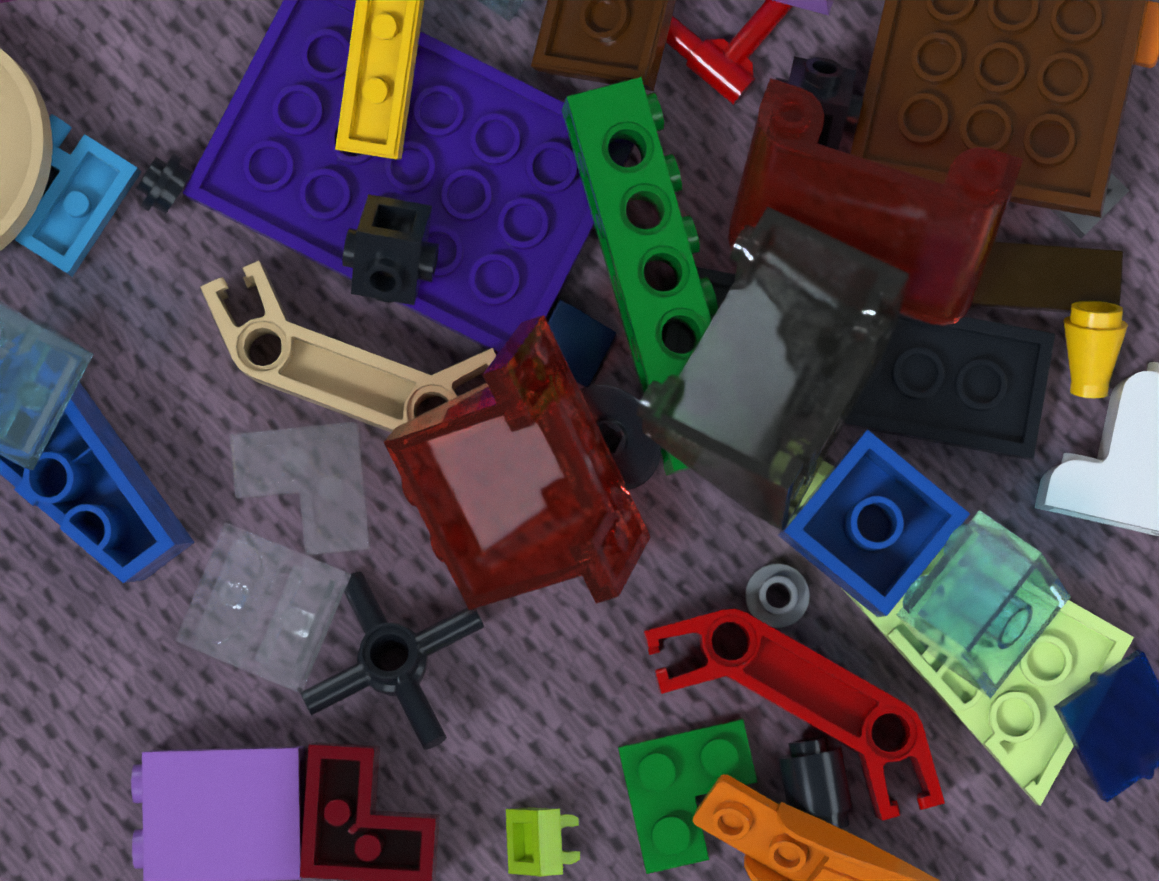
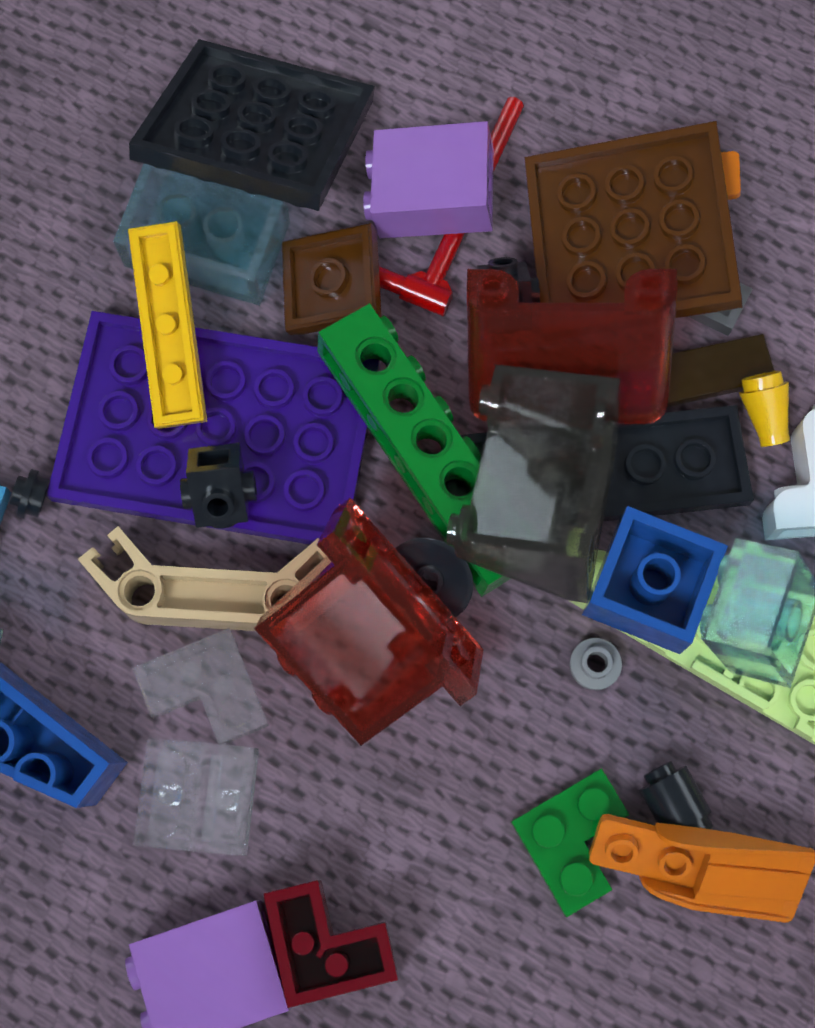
camera: 15 degrees left, 10 degrees down
(406, 680) = (323, 822): black bar -> none
(536, 841) = (471, 918): lime tile -> none
(580, 341) = (385, 513): dark blue slope -> none
(813, 692) = (652, 730): red piece -> none

